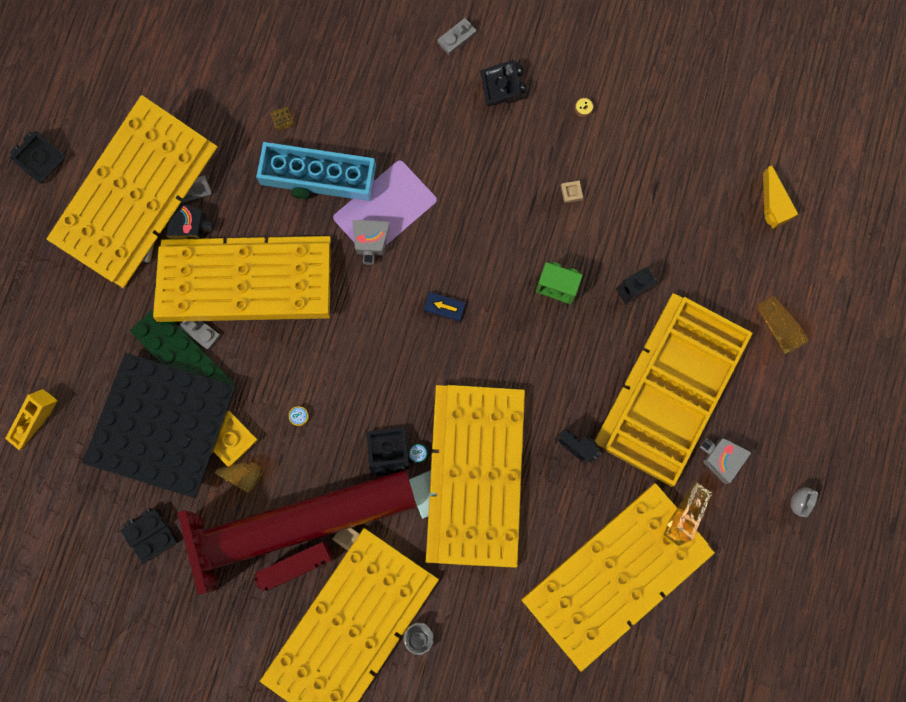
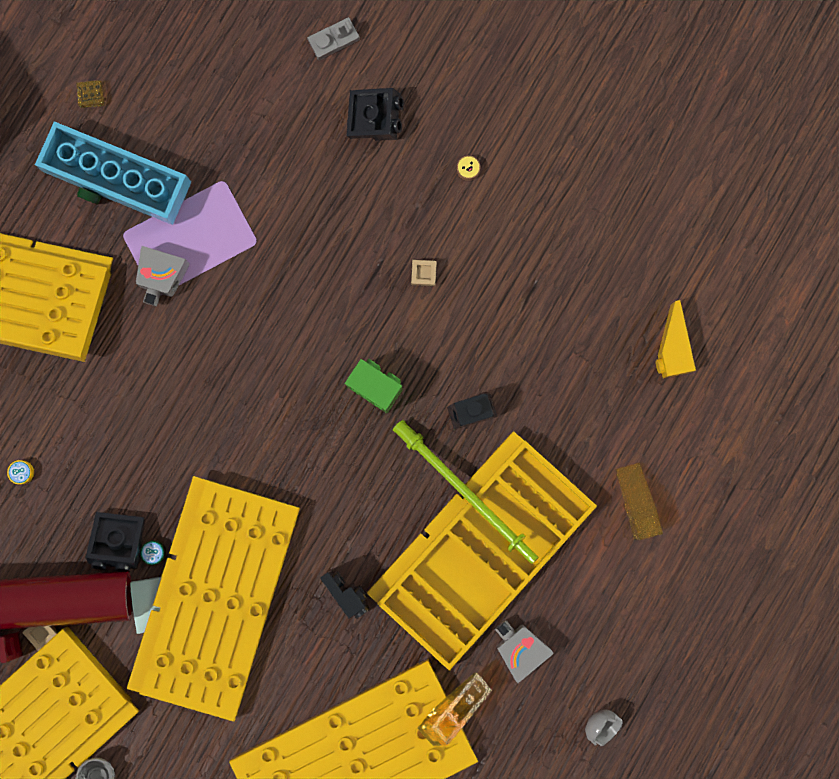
camera: 15 degrees right, 5 degrees up
(444, 307) = (230, 379): dark blue tile -> none
(600, 319) = (415, 442): none -> lime bar

